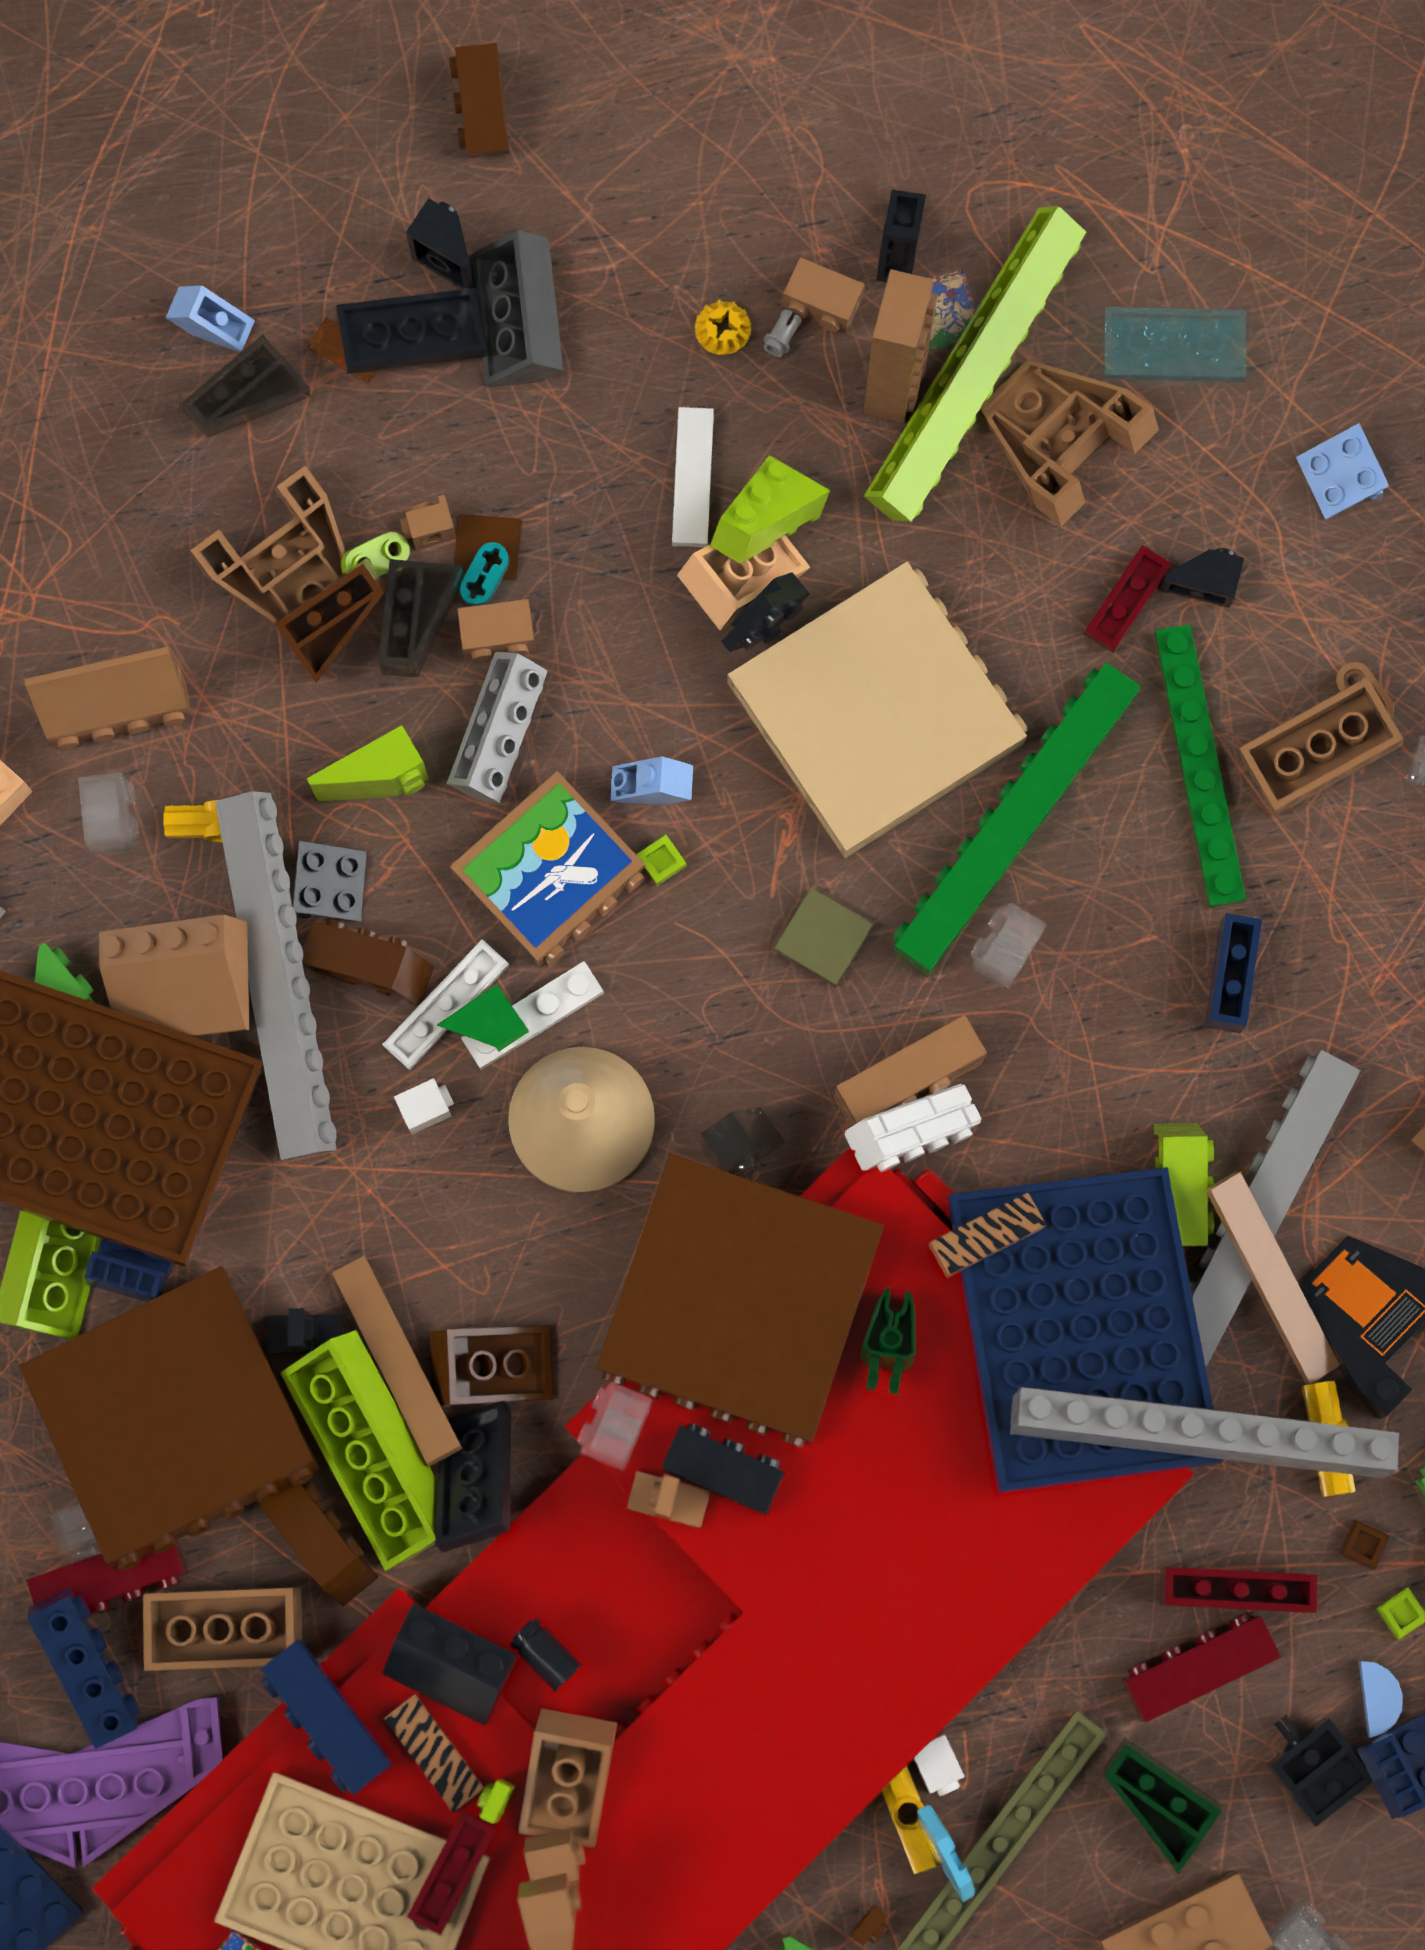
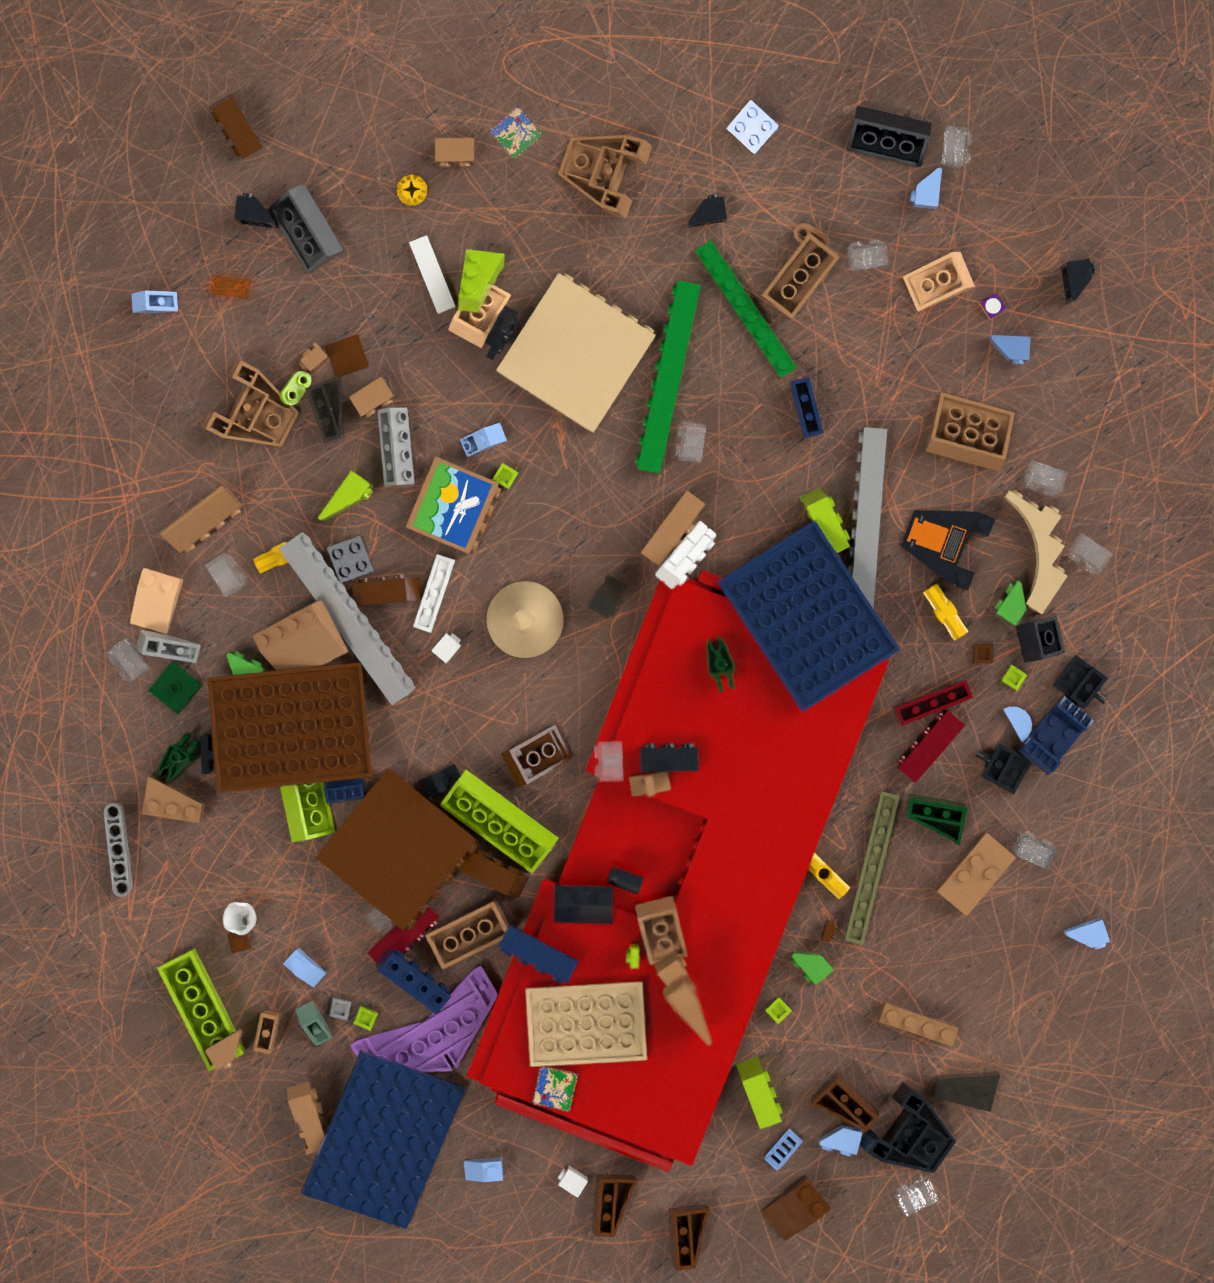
camera: 30 degrees left, 10 degrees up
(245, 389) = (191, 331): clear smoke wedge -> none
(330, 617) = (289, 429): reddish brown wedge -> none
(396, 1361) = (491, 774): medium nougat tile -> none
(411, 330) = (258, 263): black plate -> none
(434, 1753) = (595, 946): tile -> none
(452, 1872) = (628, 996): dark red plate -> none
(476, 1479) = (553, 812): black plate -> none
(477, 570) = (348, 370): teal beam -> none
(488, 1020) = (459, 594): green slope -> none
(543, 1010) = (478, 579): white plate -> none
(739, 1300) = (641, 676): reddish brown brick -> none
(778, 340) = (443, 180): light grey pin -> none
(823, 937) = (600, 478): olive tile -> none
(900, 233) = (479, 102): black bracket -> none
(900, 346) = (508, 171): medium nougat brick -> none
(939, 1766) = (829, 846): white brick -> none
(945, 1848) = (861, 893): medium azure tile -> none
(975, 364) = (547, 153): lime brick -> none
(987, 1235) = (744, 593): tile -> none
(1127, 599) = (674, 241): dark red plate -> none
(1174, 344) = (641, 97): clear light blue plate -> none
(1204, 1433) = (885, 642): light grey brick -> none
(1272, 1277) = (886, 548): tile -> none

